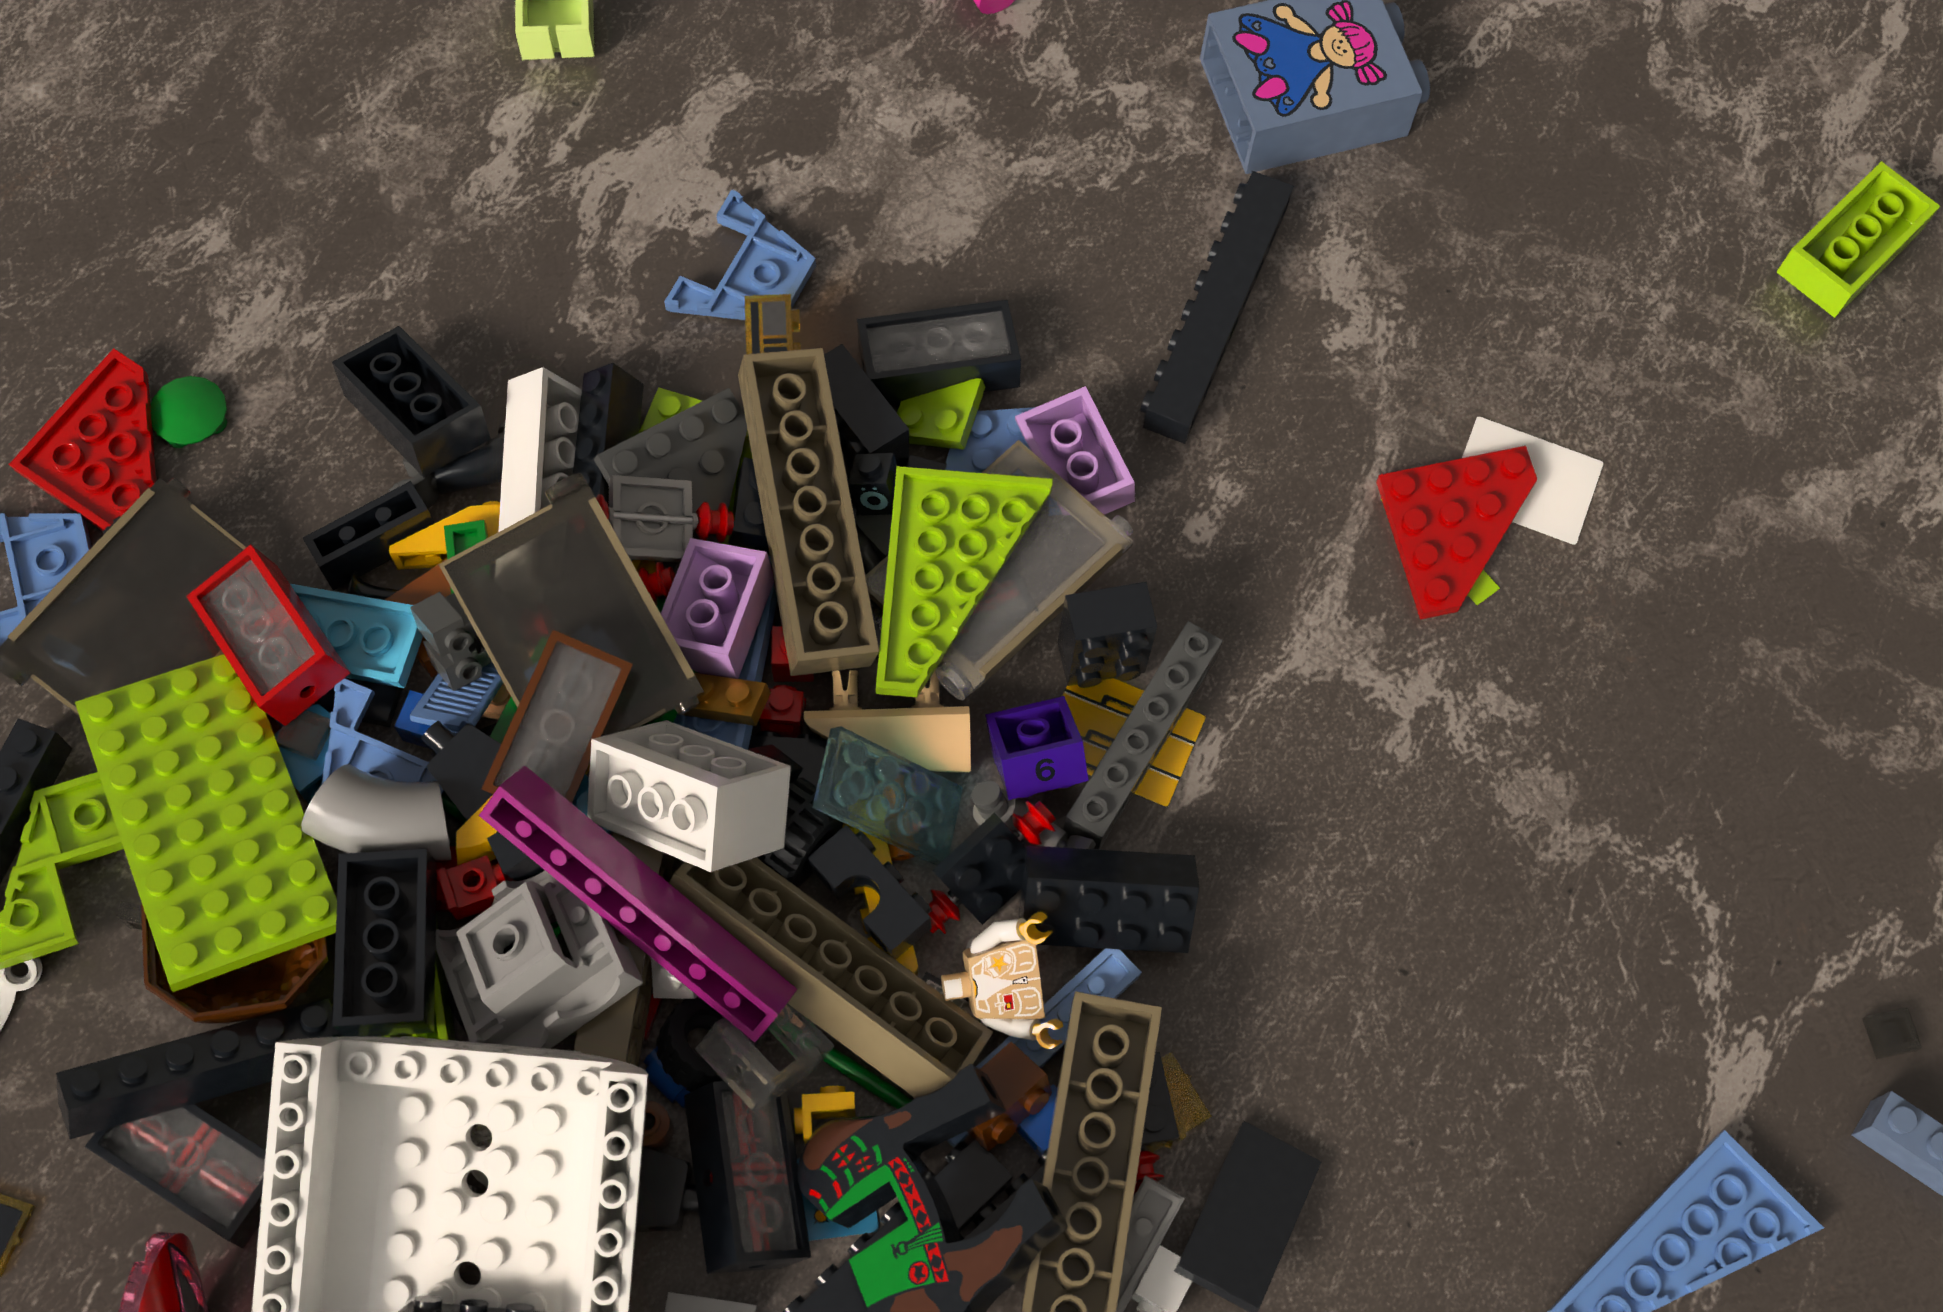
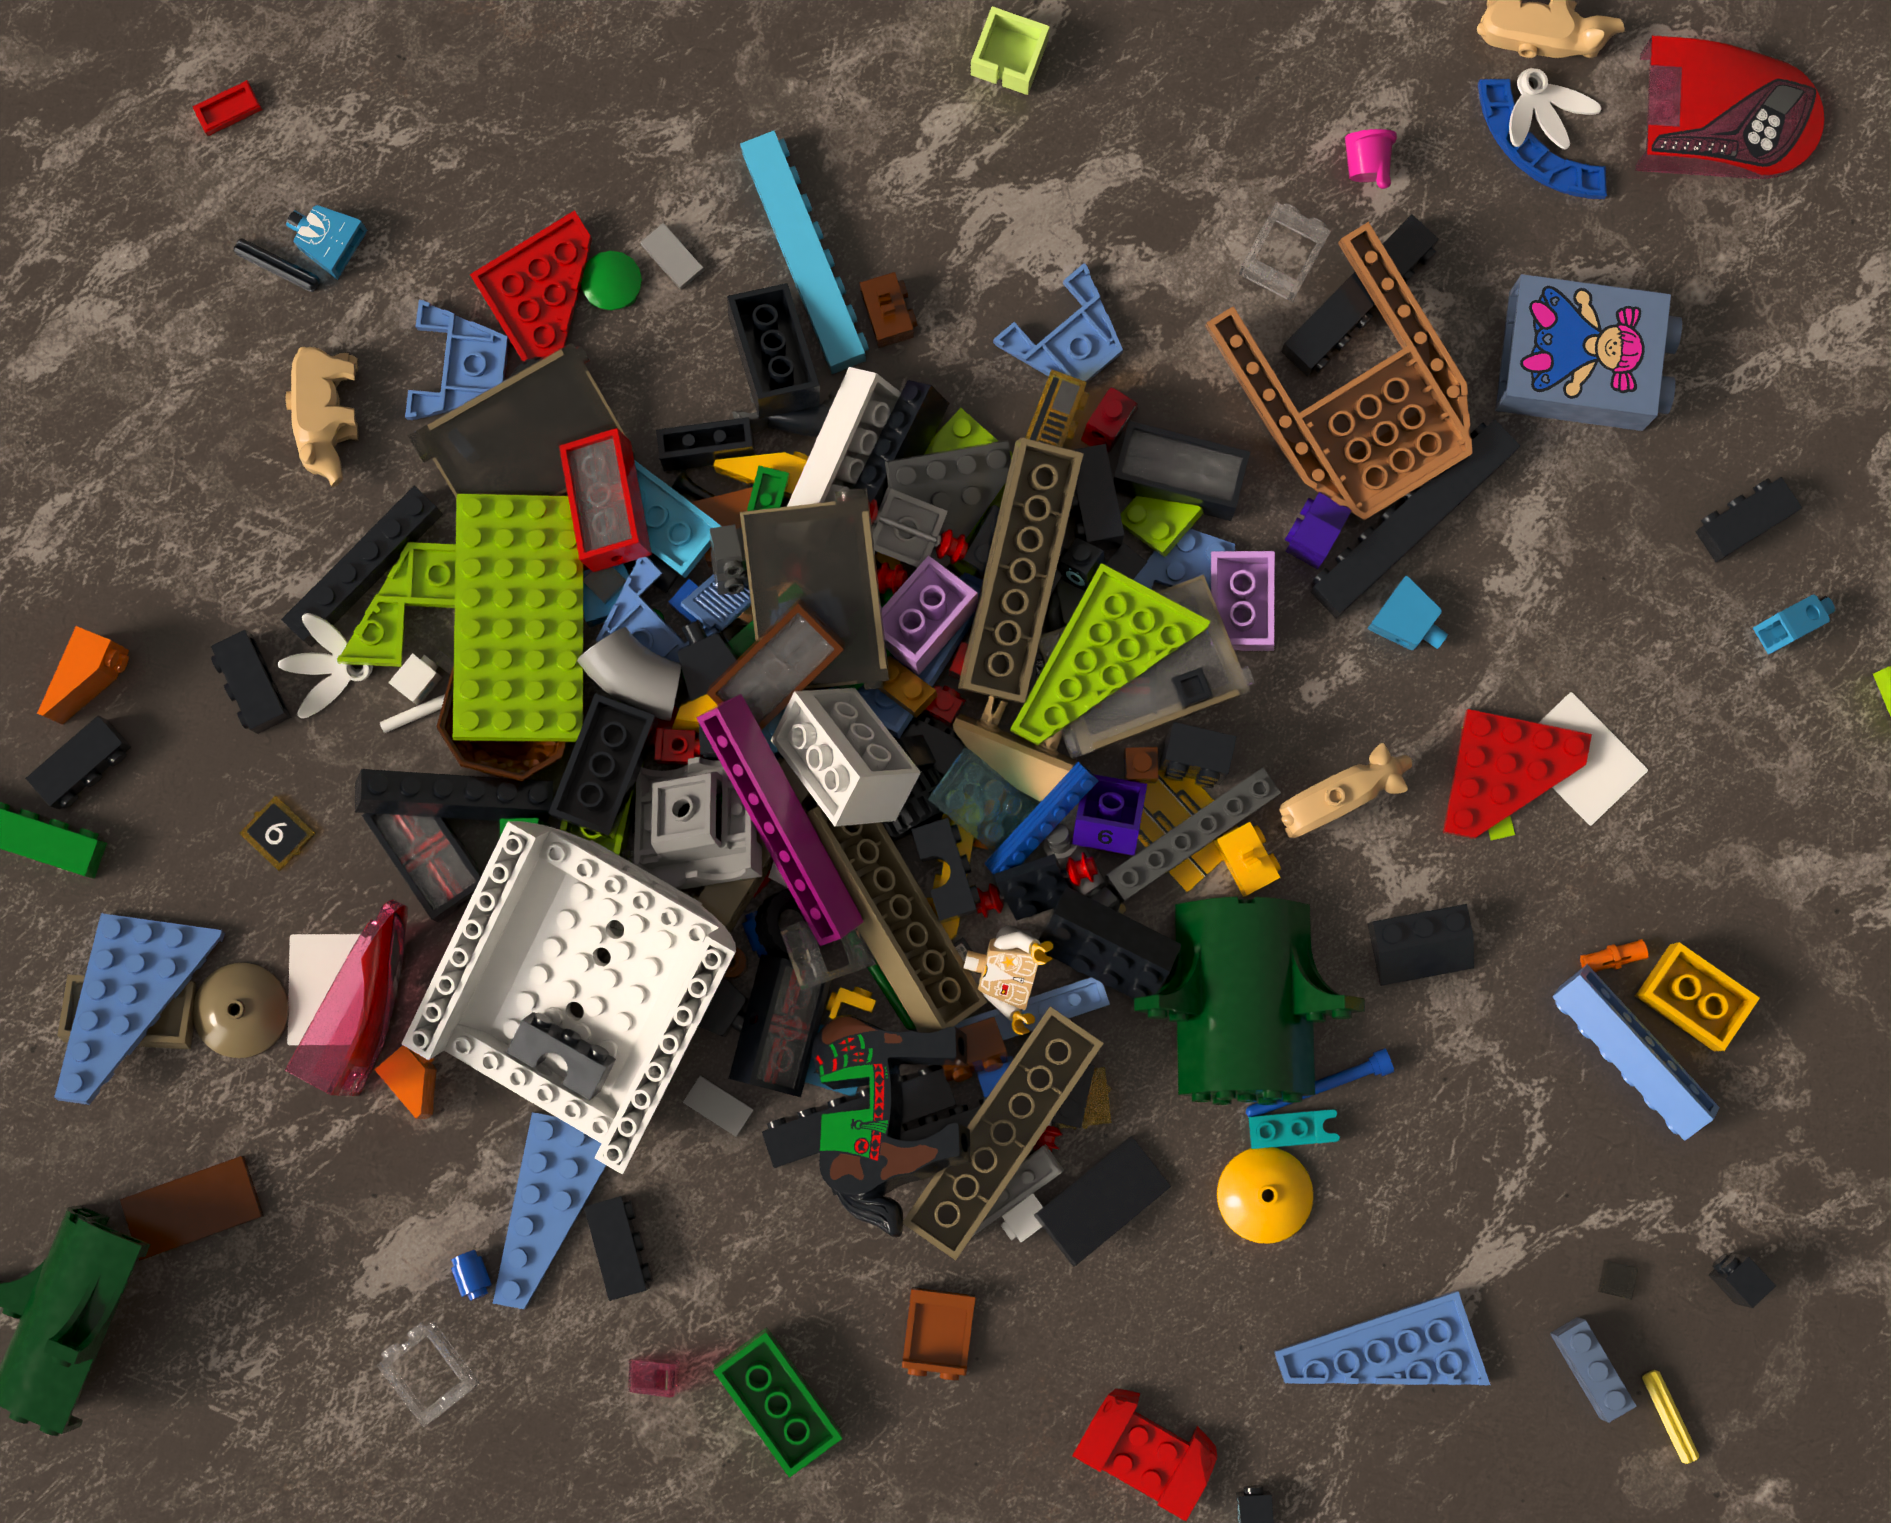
camera: 30 degrees right, 15 degrees up
(103, 952) = (416, 678): none -> white brick
(111, 1003) = (412, 714): none -> white piece
(252, 359) = (672, 256): none -> light grey tile
(405, 294) = (803, 251): none -> medium azure brick
(529, 317) = (887, 309): none -> reddish brown brick
(835, 320) = (1109, 419): none -> dark red torso
(942, 129) = (1271, 278): none -> clear window
(961, 783) = (1042, 819): none -> blue piece
(1045, 678) = (1141, 764): none -> reddish brown brick
(1046, 114) = (1351, 303): none -> black brick
(1065, 561) = (1192, 688): none -> black tile
(1119, 357) = (1317, 532): none -> dark purple brick
(1136, 222) = (1384, 426): none -> medium nougat wedge
(1219, 735) = (1248, 859): none -> yellow brick
(1265, 406) = (1409, 617): none -> dark azure torso
(1291, 612) = (1344, 792): none -> tan animal
(1303, 893) = (1245, 1000): none -> dark green cylinder
(1417, 1141) = (1242, 1188): none -> yellow dish
(1428, 1026) = (1291, 1129): none -> teal plate
(1465, 745) = (1422, 944): none -> black slope
(1488, 903) = (1377, 1064): none -> blue piece
(1563, 171) = (1747, 518): none -> black brick
(1677, 236) = (1794, 622): none -> dark azure torso
(1680, 670) = (1615, 956): none -> orange pin
(1768, 761) = (1635, 1053): none -> medium blue brick
(1797, 670) = (1697, 997): none -> yellow brick

